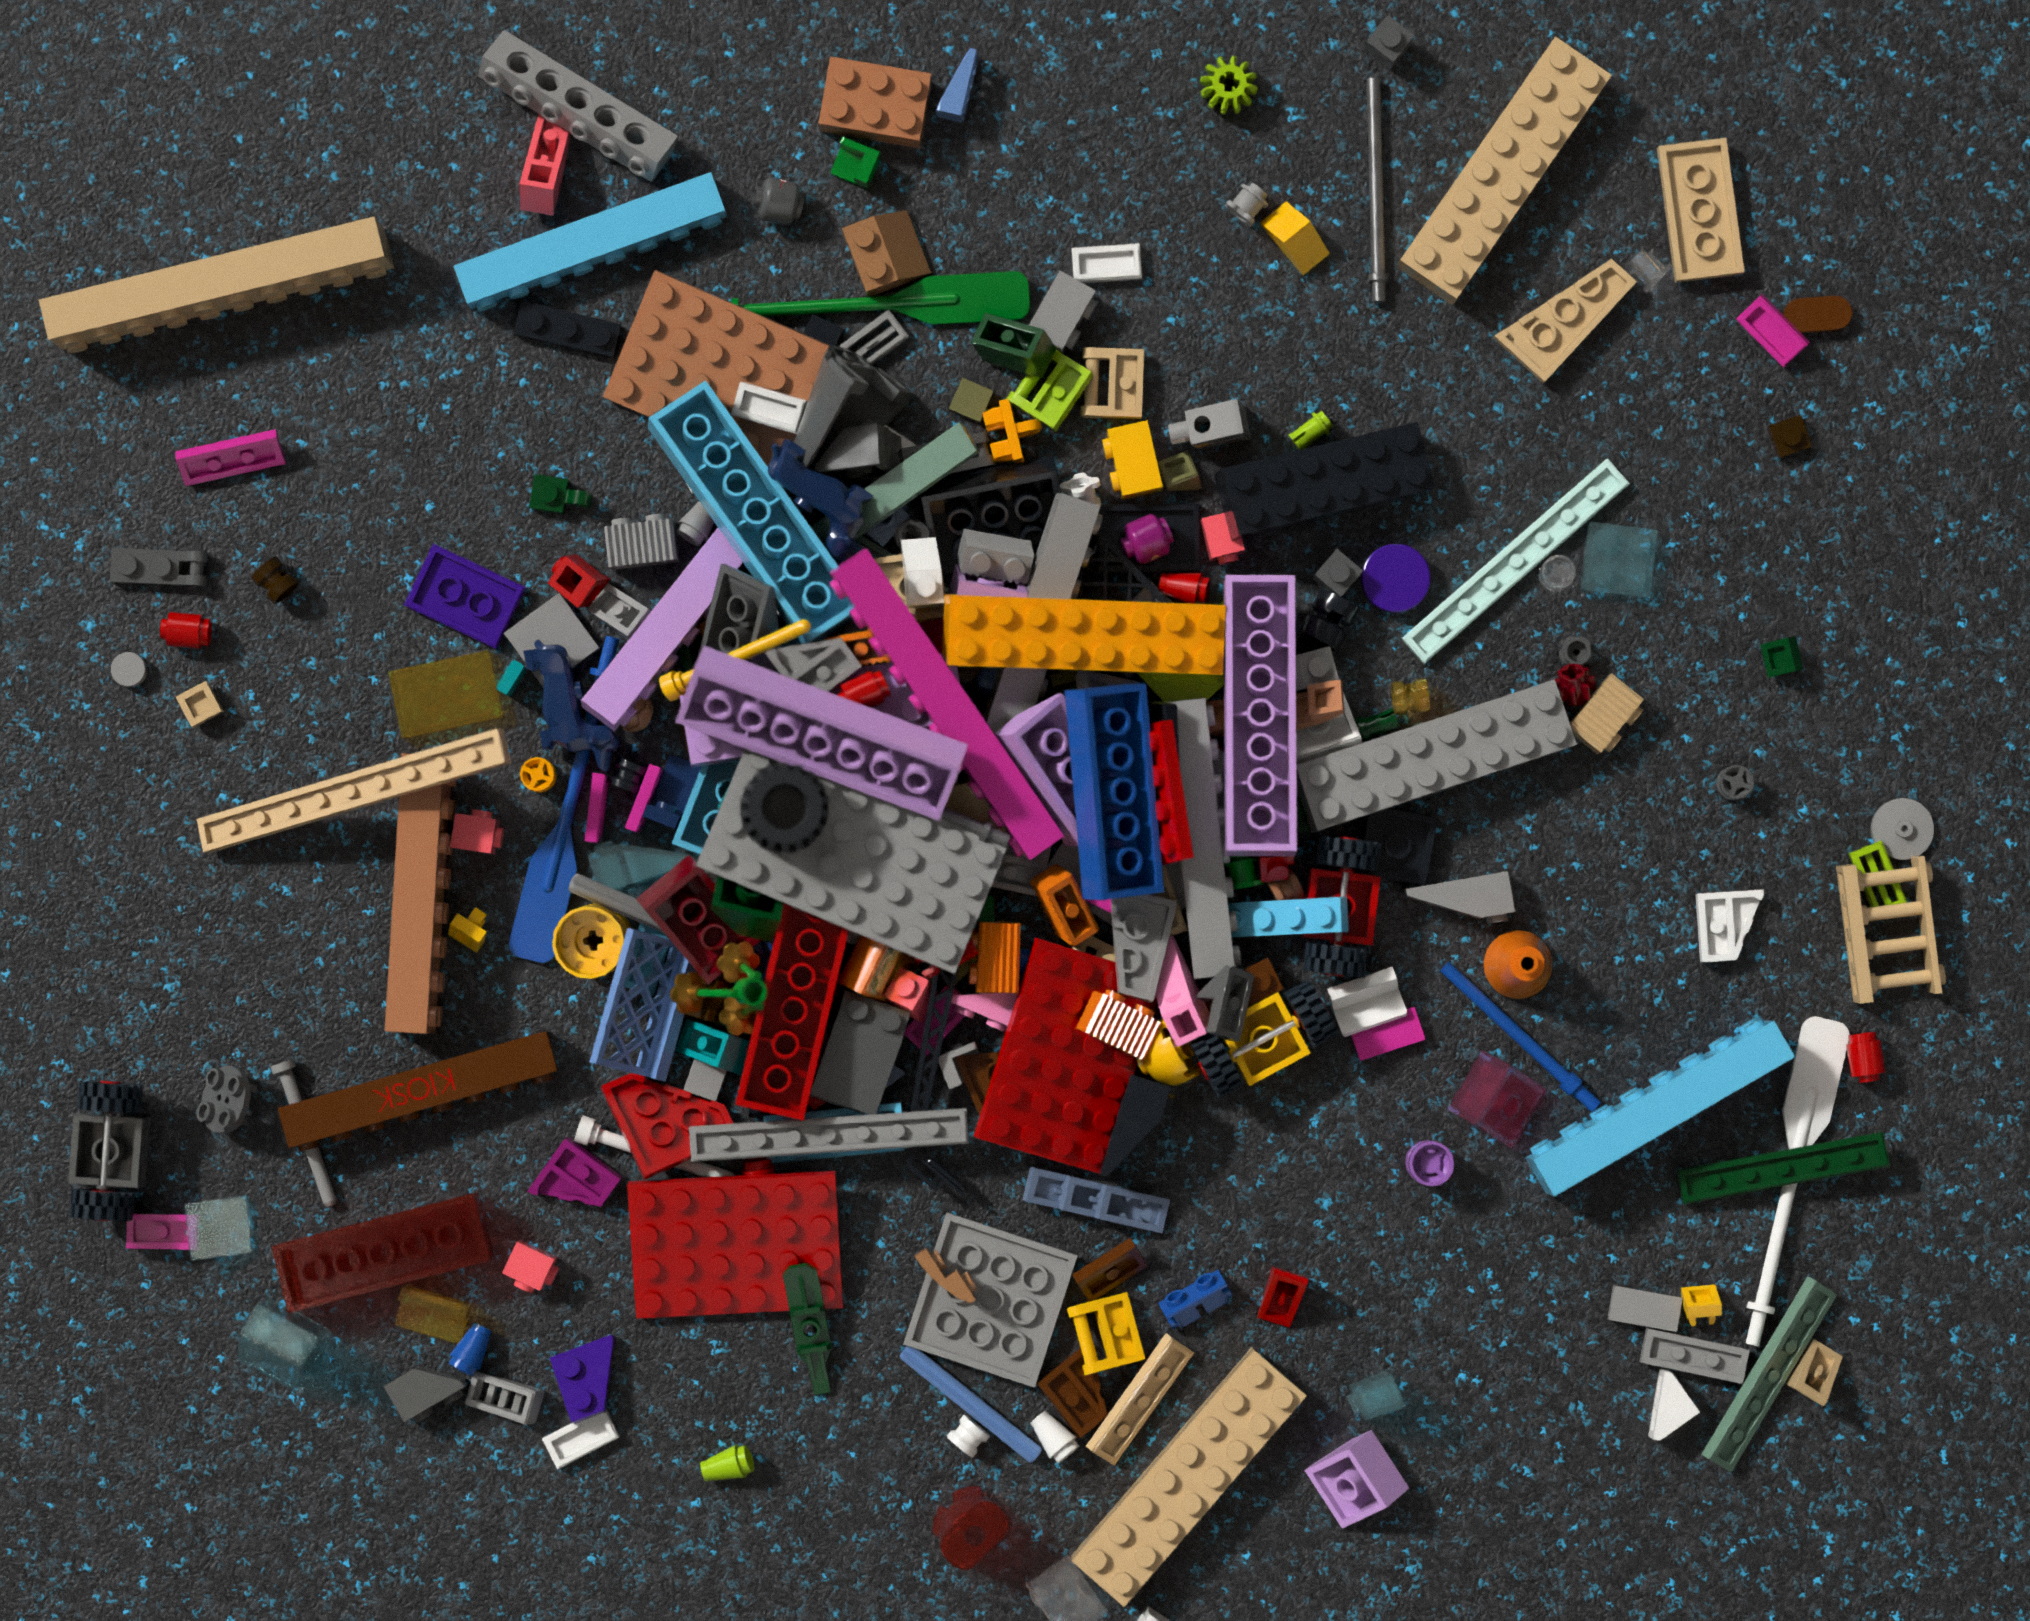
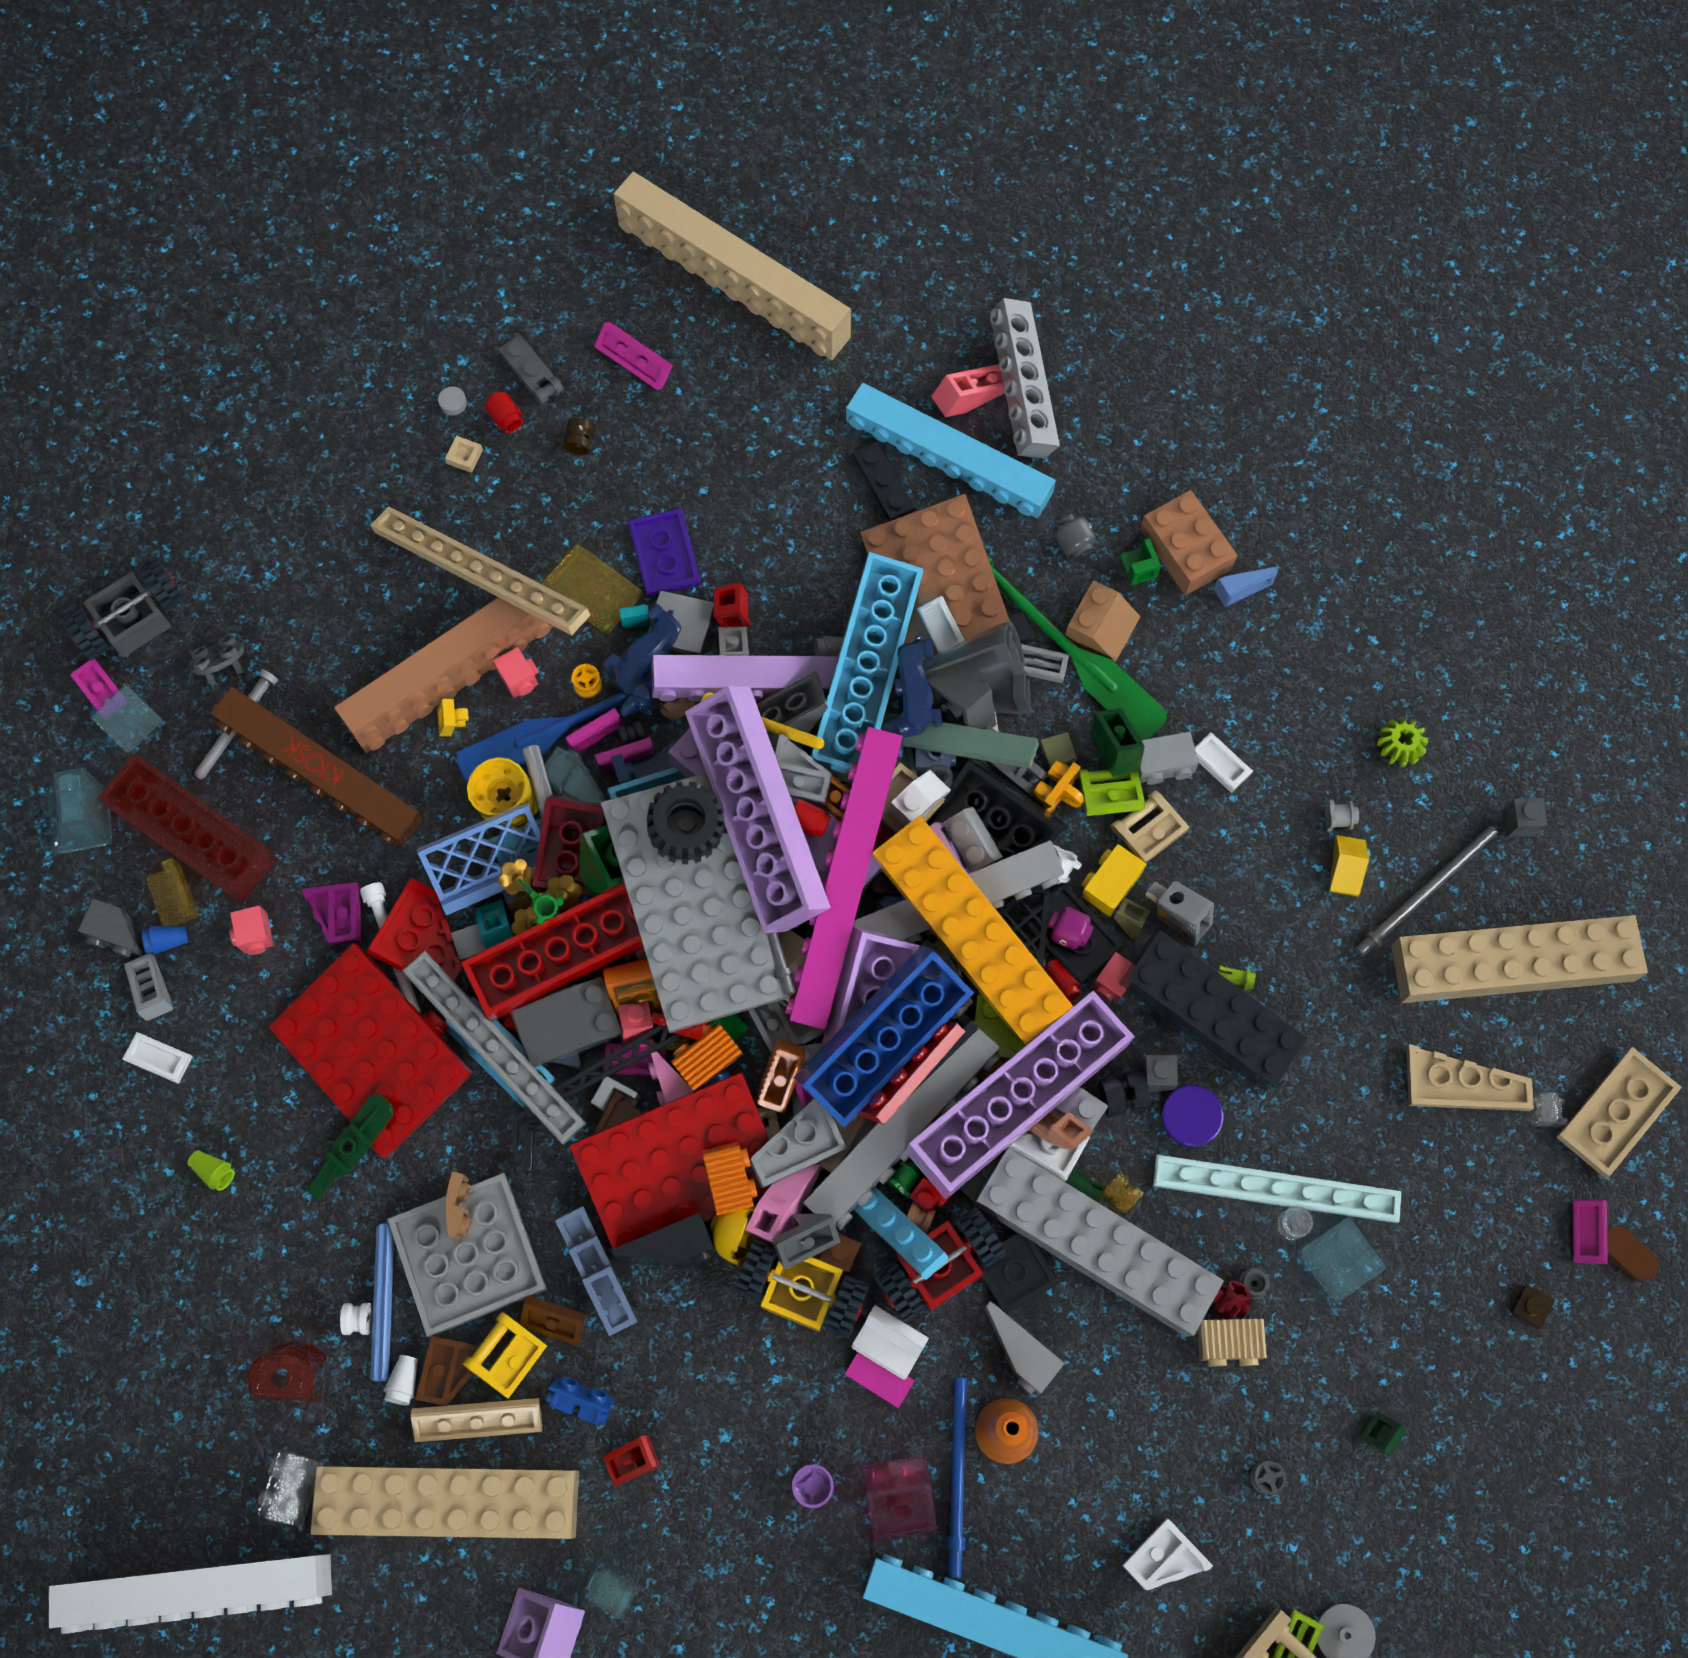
camera: 50 degrees right, 15 degrees down
(553, 495) = (775, 553): dark green plate -> none
(585, 1377) = (199, 1026): dark purple wing -> none
(641, 542) = (788, 624): light grey brick -> none

